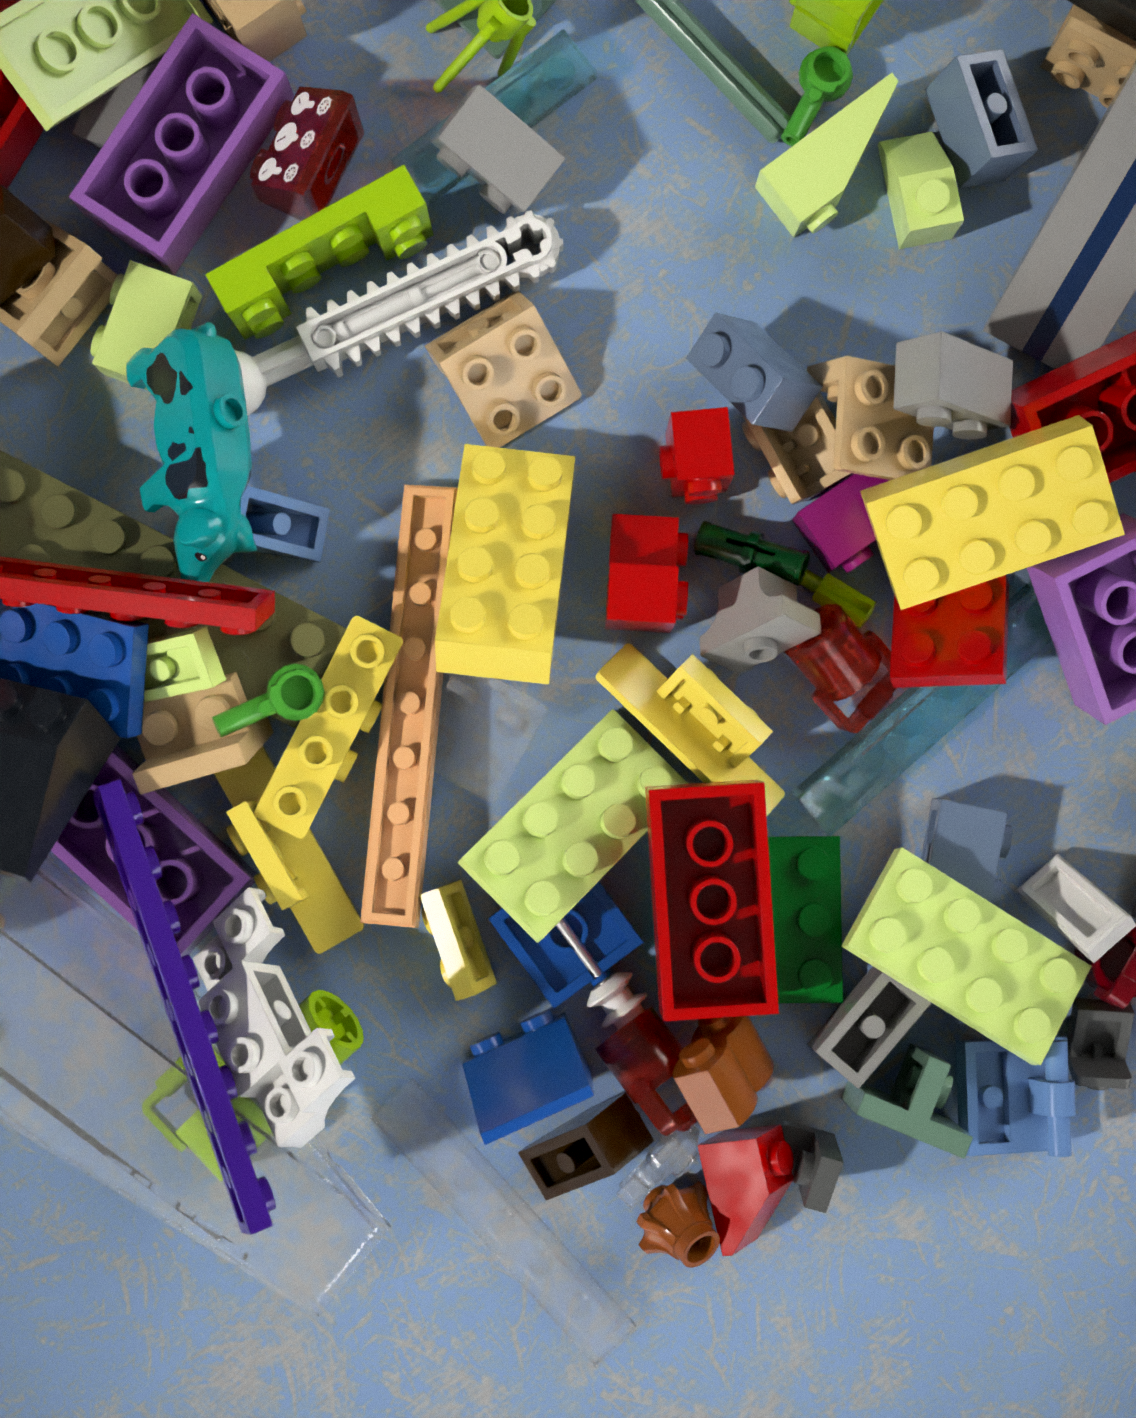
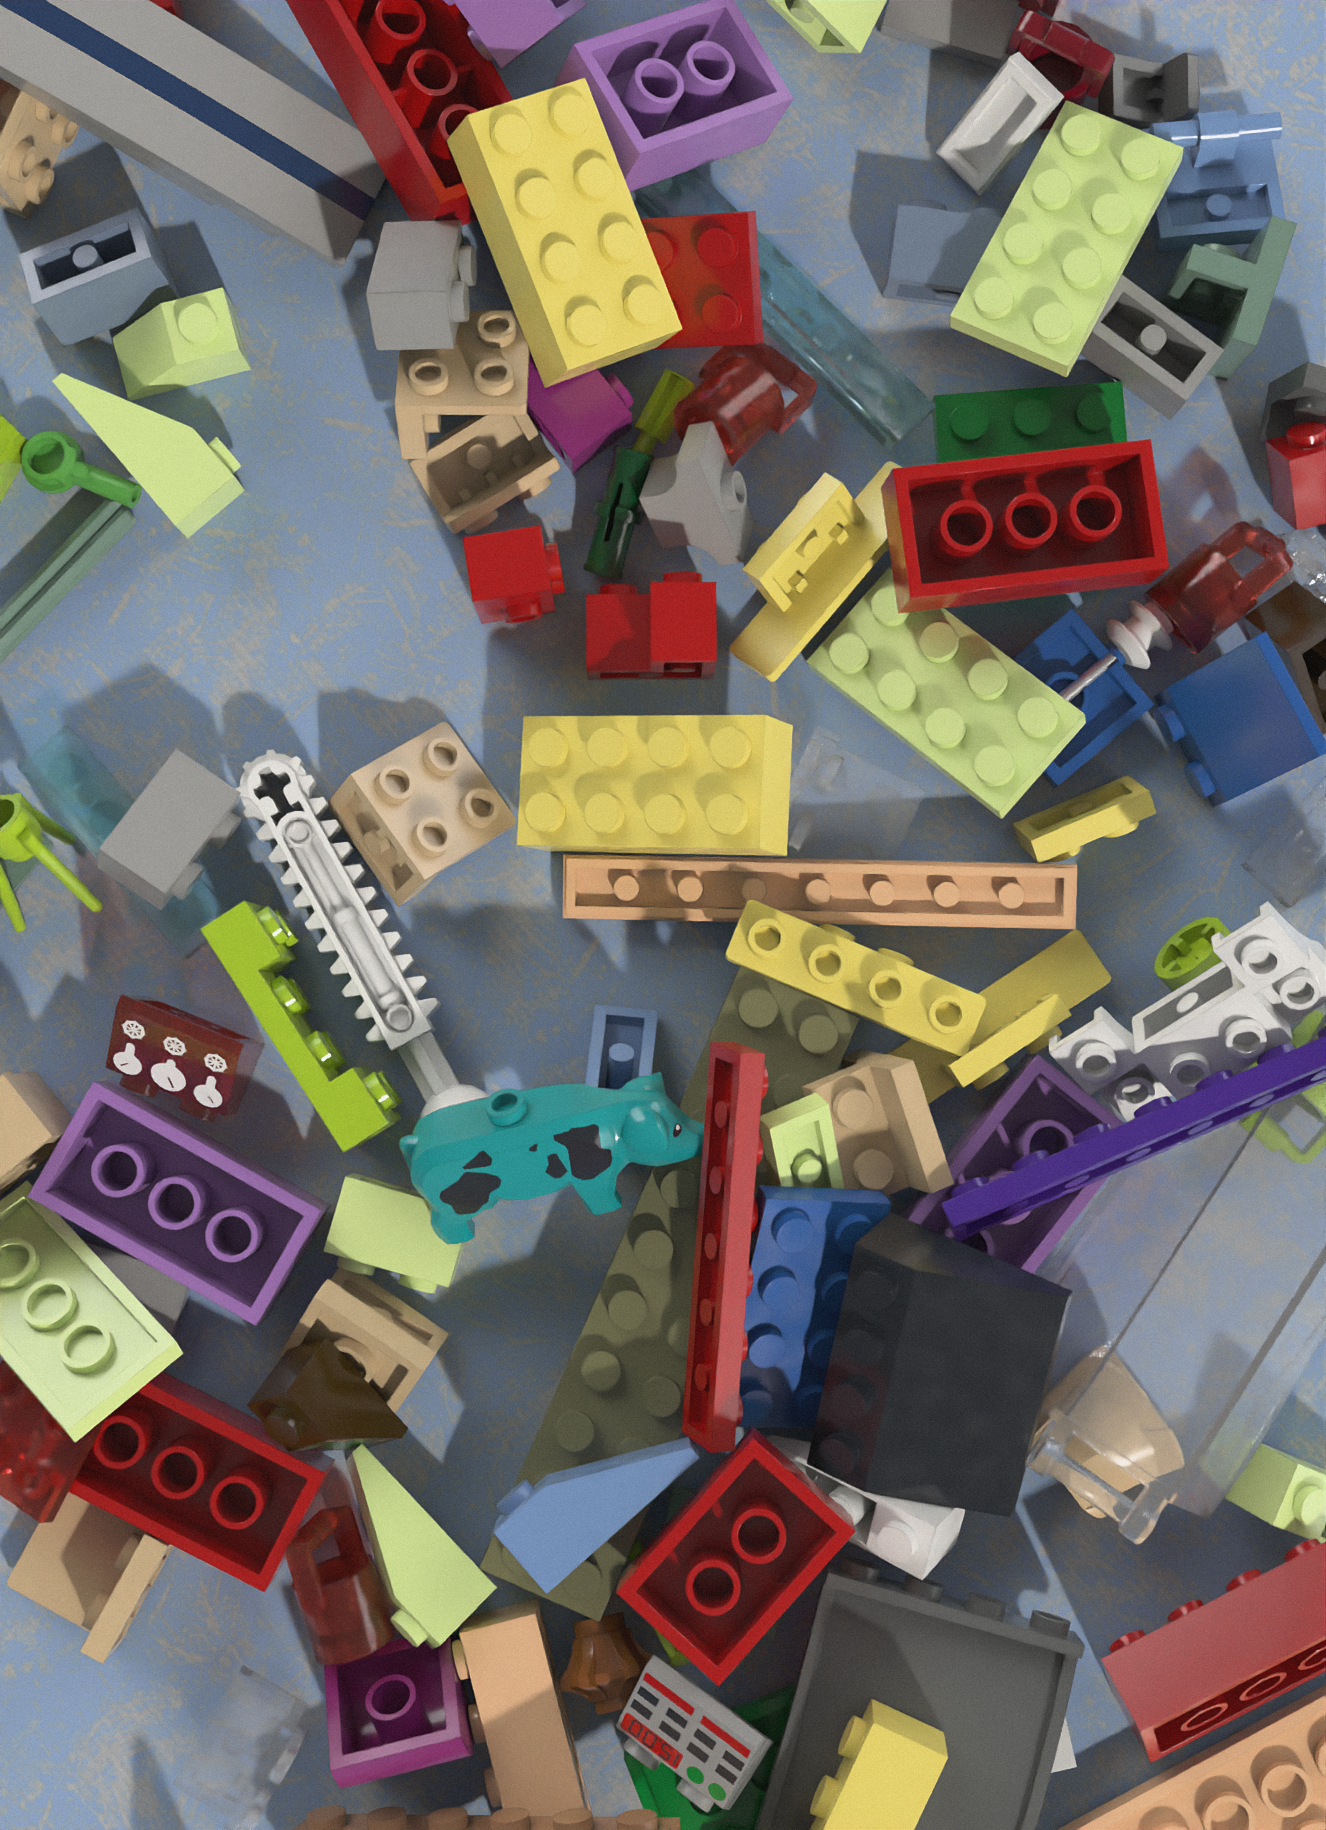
camera: 100 degrees left, 0 degrees up
(291, 692) = (823, 1018): bright green plate -> none
(723, 1072) = (1219, 503): dark orange brick -> none
(753, 372) = (413, 517): sand blue brick -> none

